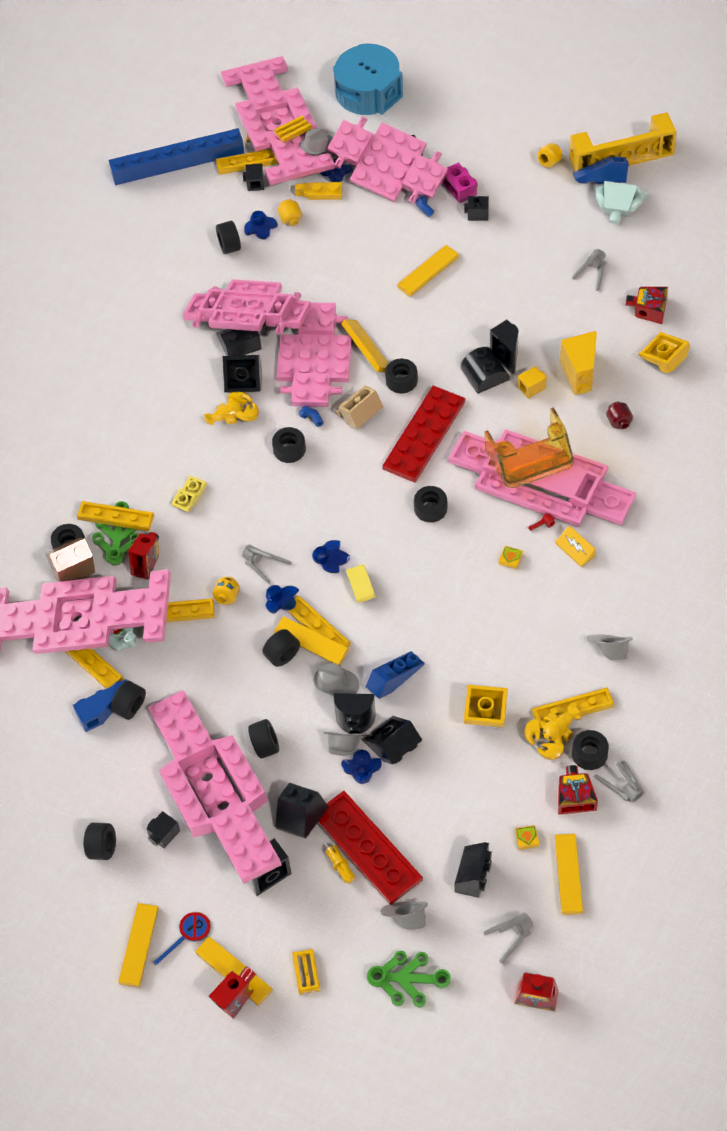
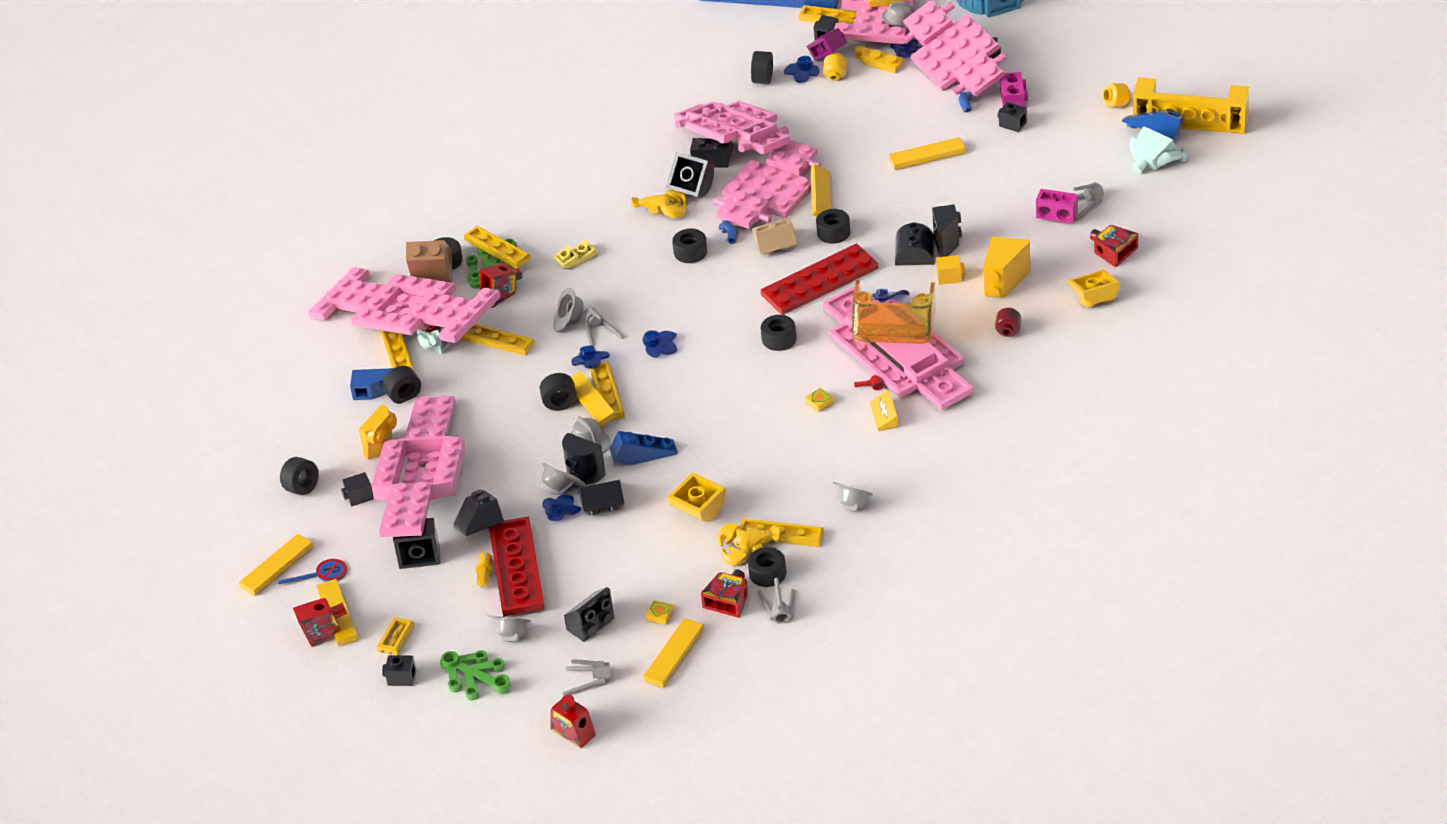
camera: 30 degrees right, 15 degrees down
(145, 761) = (376, 431): none -> yellow slope
(225, 556) = (568, 309): none -> light grey piece
(226, 590) = (547, 335): yellow head -> none
(263, 738) = (491, 453): black tyre -> none
(271, 193) = (827, 44): none -> magenta brick
(339, 1009) = (399, 670): none -> black brick
(360, 583) = (667, 371): light yellow slope -> none
(501, 426) = (883, 295): none -> clear blue plate
(580, 284) = (1056, 206): none -> dark pink brick

